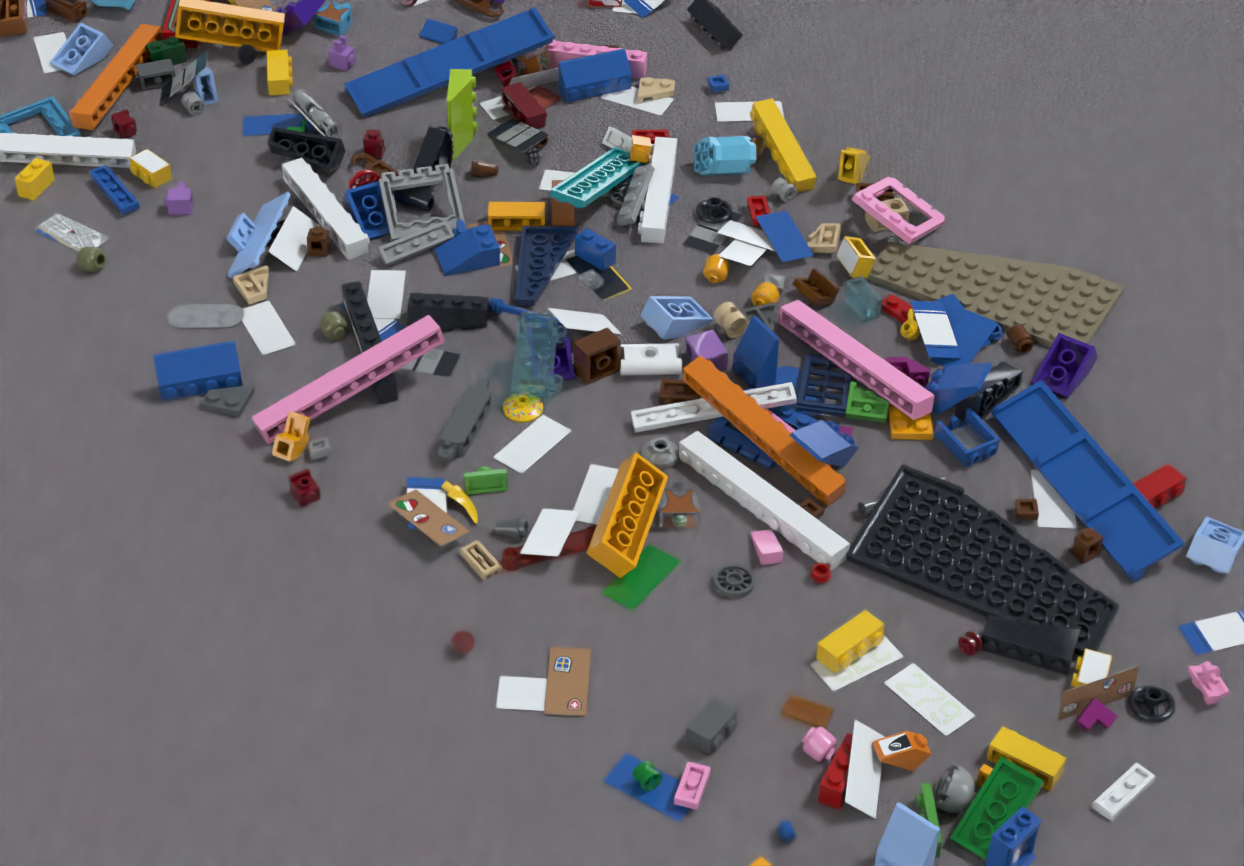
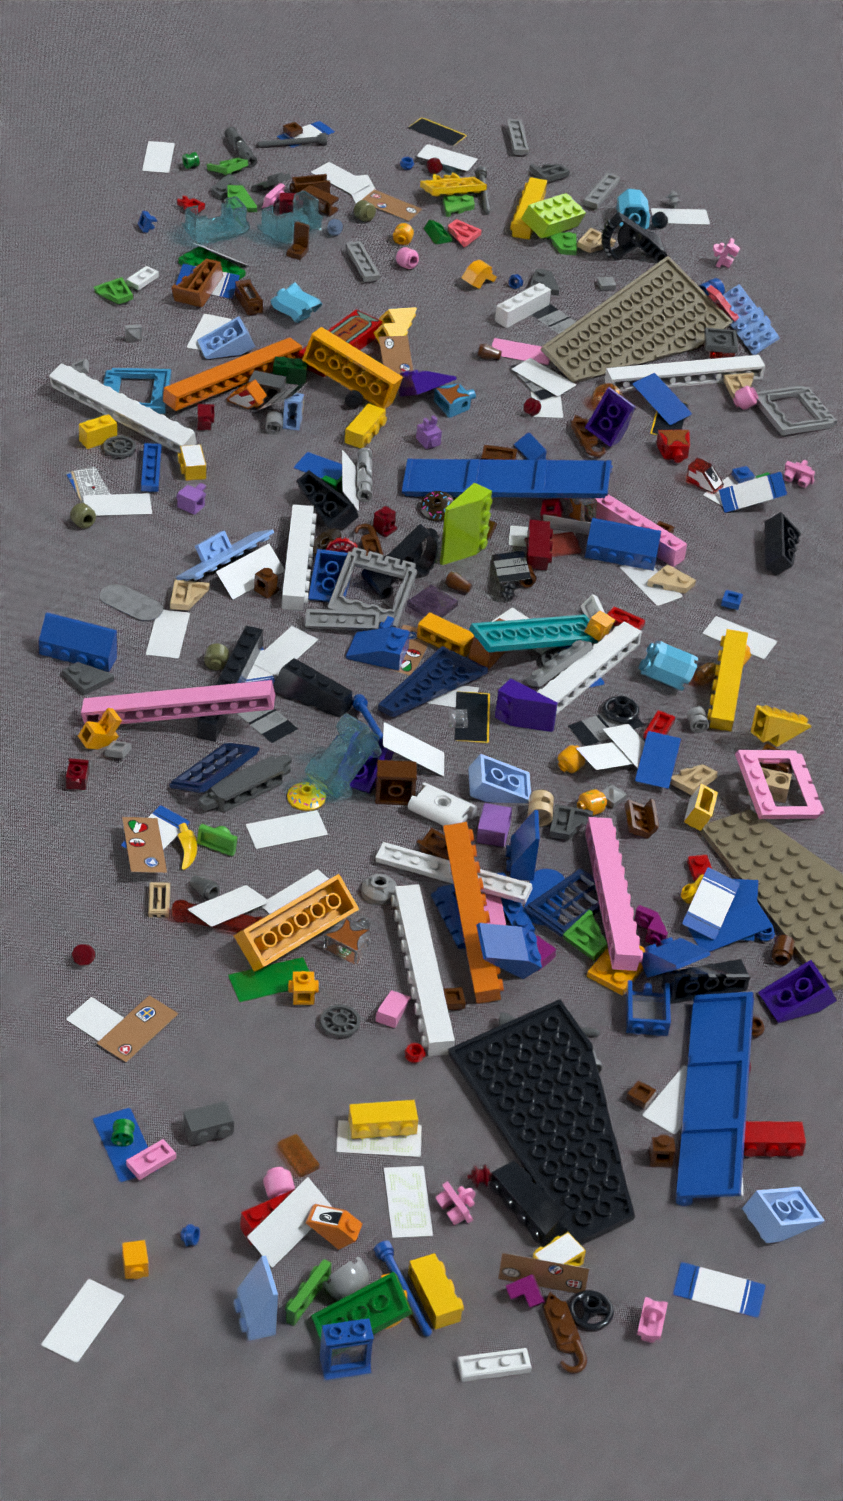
camera: 30 degrees right, 0 degrees up
(65, 186) = (119, 448): none -> dark grey wheel
(113, 234) = (119, 504): none -> white sticker
(146, 89) = (248, 395): none -> orange slope
(338, 181) = (323, 539): none -> dark brown dish
(404, 118) = (435, 511): none -> dark brown dish
(404, 450) = (181, 782): none -> dark blue piece
(416, 46) = (498, 453): none -> reddish brown bracket
(478, 194) = (433, 601): none -> clear purple plate
(595, 249) = (482, 693): blue brick -> none
(644, 243) = (524, 707): none -> dark purple slope
(682, 567) = (303, 988): none -> light orange brick
(862, 299) = (670, 846): clear light blue brick -> none
(957, 751) = (384, 1252): none -> blue piece
(974, 673) = (460, 1211): none -> bright pink hips
(1150, 732) = (564, 1332): none -> reddish brown plate

